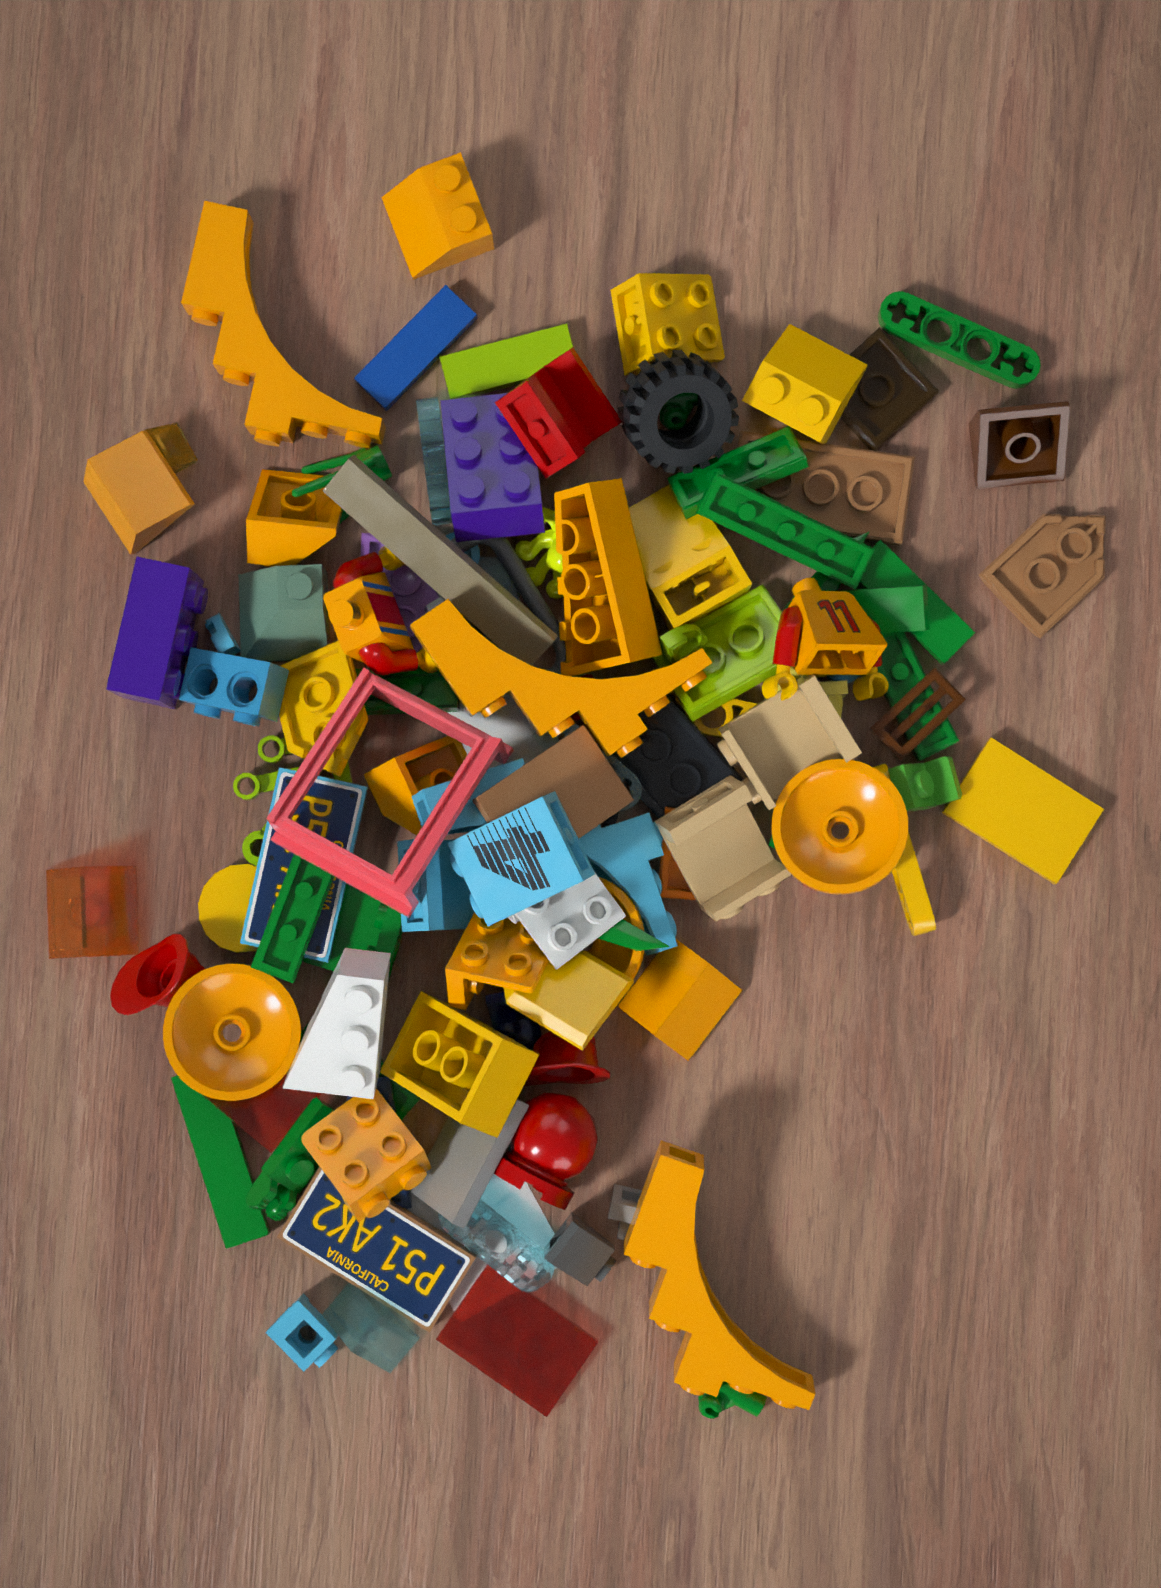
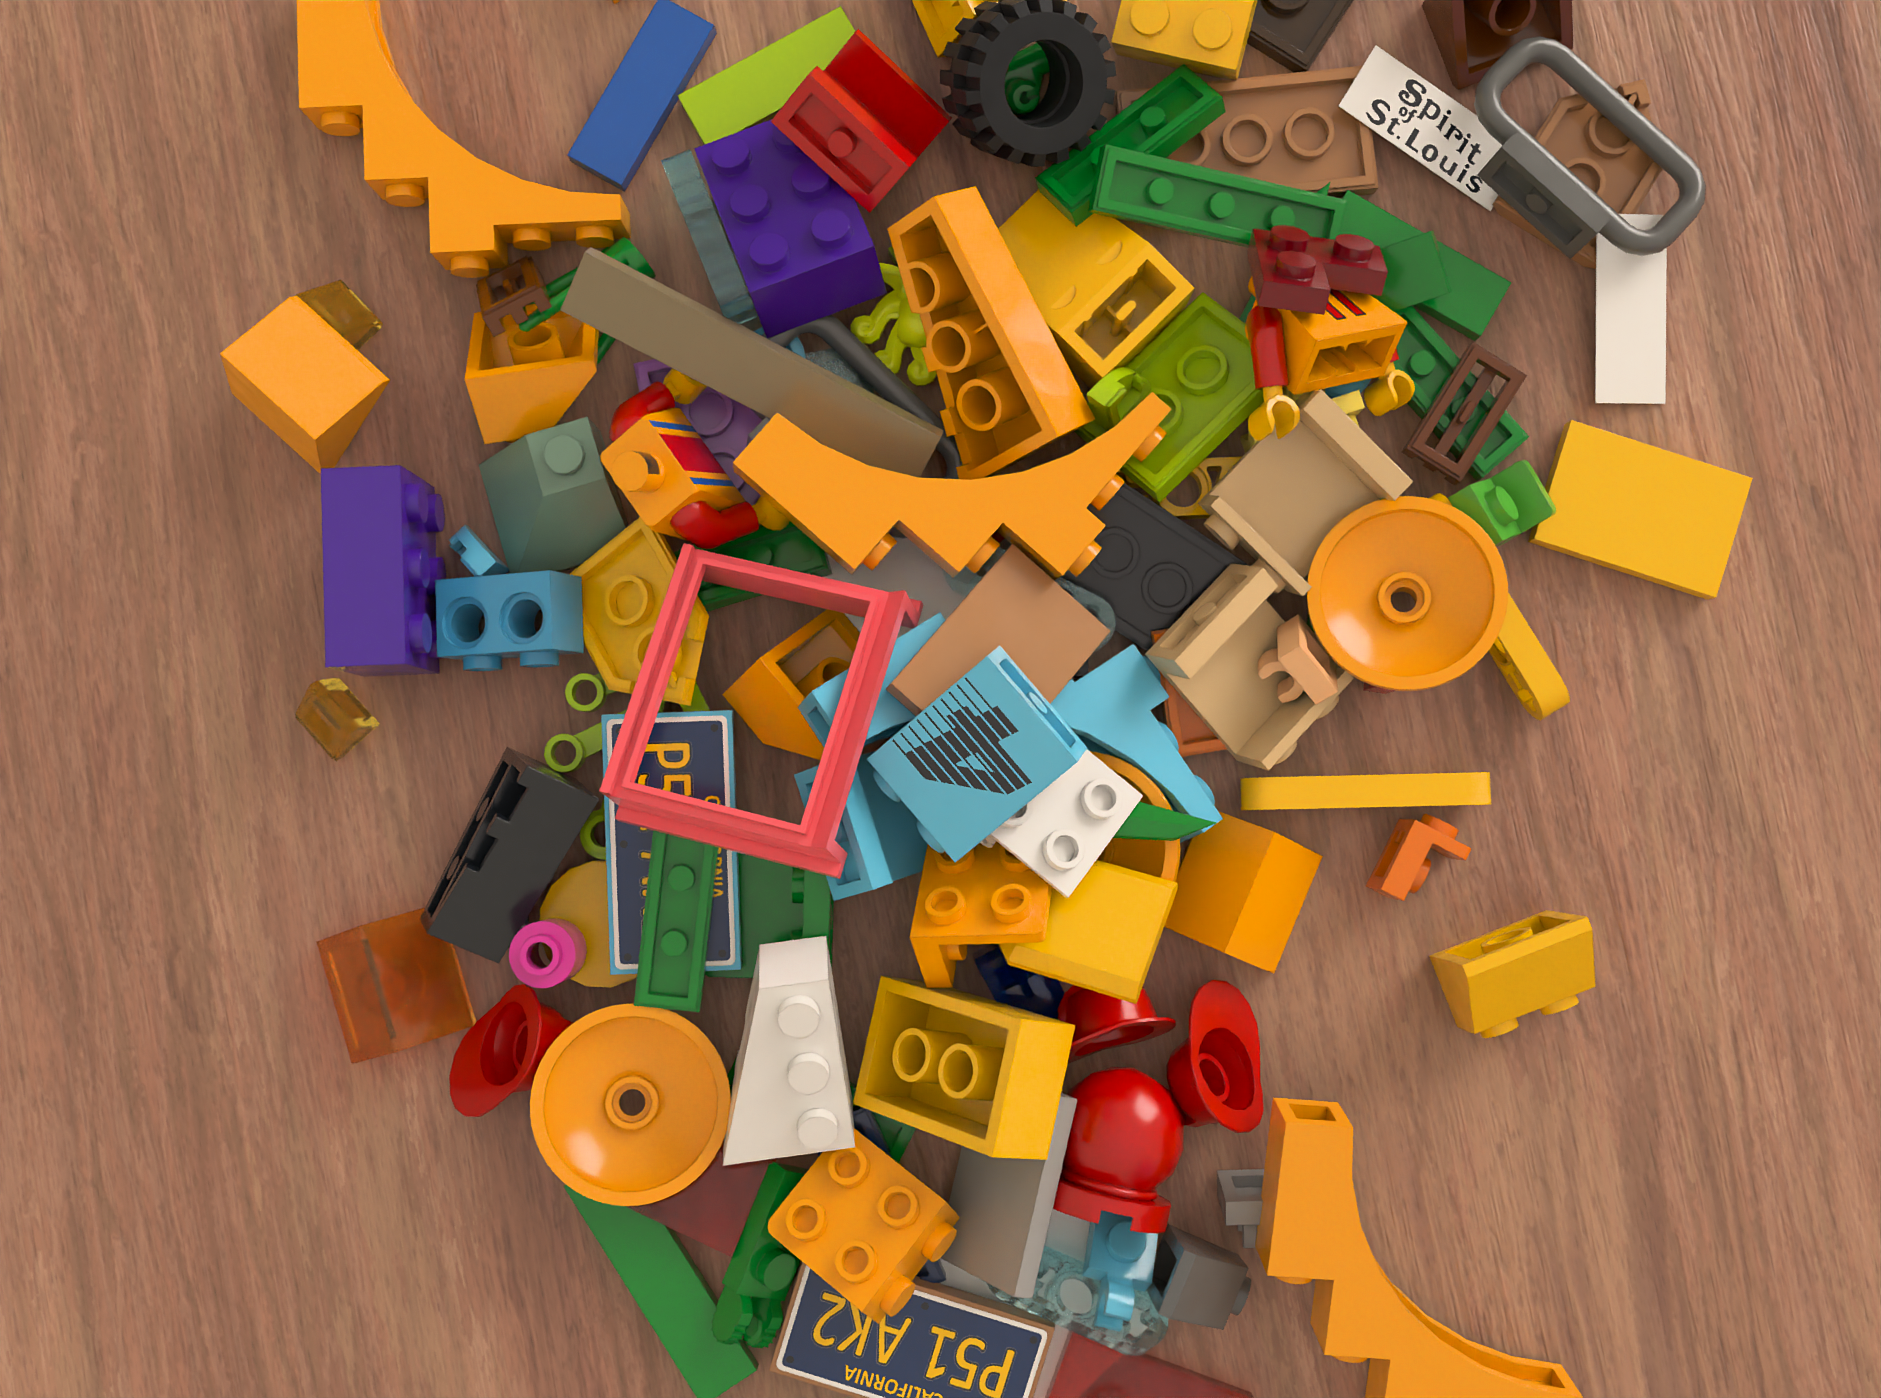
camera: 15 degrees left, 0 degrees up
(97, 721) = (334, 717): none -> clear yellow slope
(191, 845) = (507, 855): none -> black wedge
(216, 917) = (567, 947): none -> dark pink brick
(293, 475) = (516, 298): none -> reddish brown tile
(532, 1224) = (1122, 1263): none -> medium azure plate
(633, 1111) = (1218, 1065): none -> red piece
(760, 854) = (1303, 659): none -> light nougat tile
(781, 953) = (1365, 791): none -> yellow beam
(794, 1008) = (1404, 861): none -> orange bracket
(823, 586) = (1299, 270): none -> dark red plate
(849, 1101) = (1517, 971): none -> yellow slope
(950, 511) = (1423, 123): none -> white sticker
(1014, 576) = (1552, 194): none -> dark grey bar
(1053, 671) = (1630, 321): none -> white sticker

